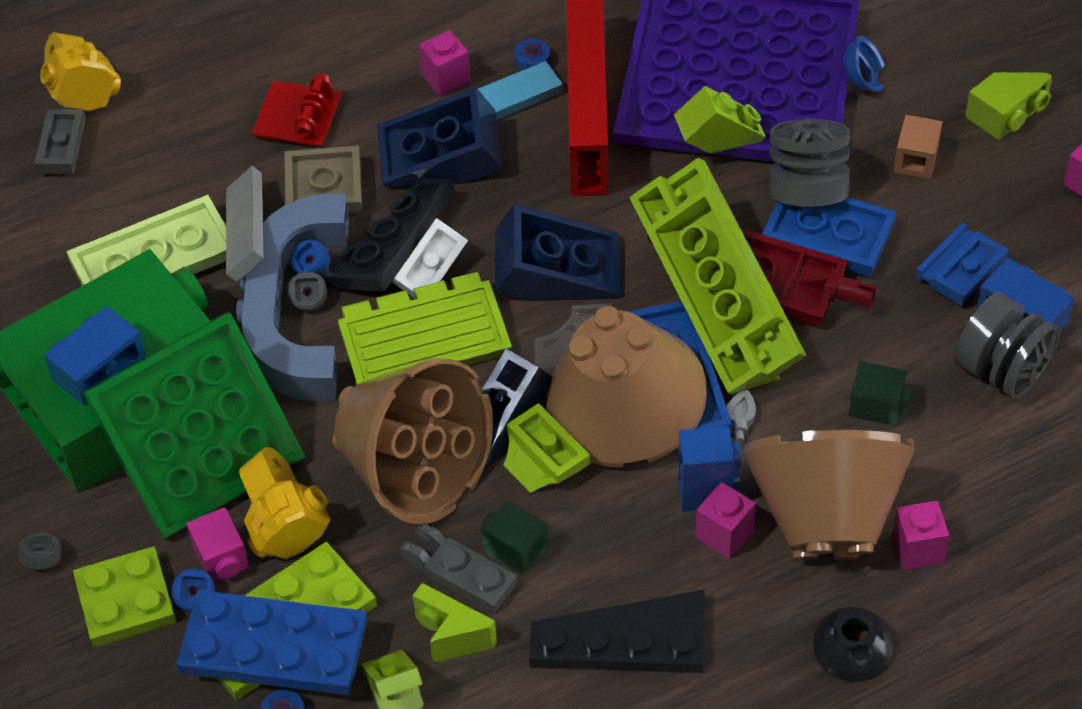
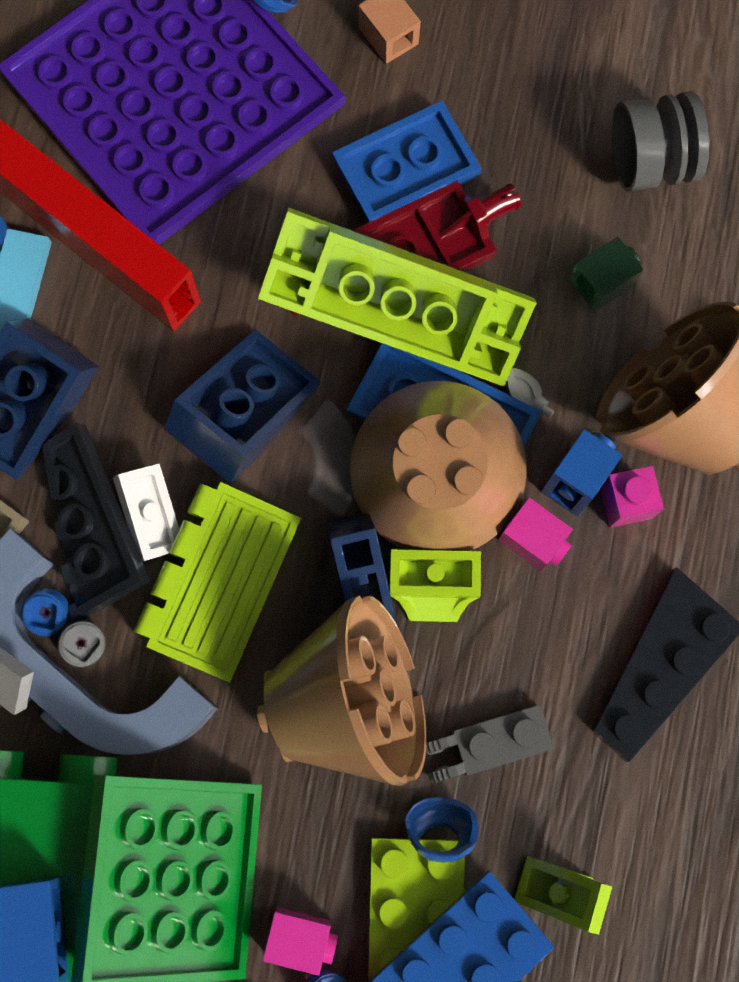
camera: 55 degrees left, 25 degrees up
(282, 512) = (315, 859): yellow piece -> none
(374, 566) = (443, 813): none -> blue piece
(457, 626) = (560, 795): lime slope -> none
(514, 537) = (502, 677): clear green brick -> none
(638, 485) = (537, 535): none -> dark pink brick
(718, 122) = (231, 154): lime slope -> none
(809, 162) = (345, 121): dark grey wheel -> none
(962, 264) = (534, 99): blue plate -> none
(1031, 291) = (602, 83): blue brick -> none

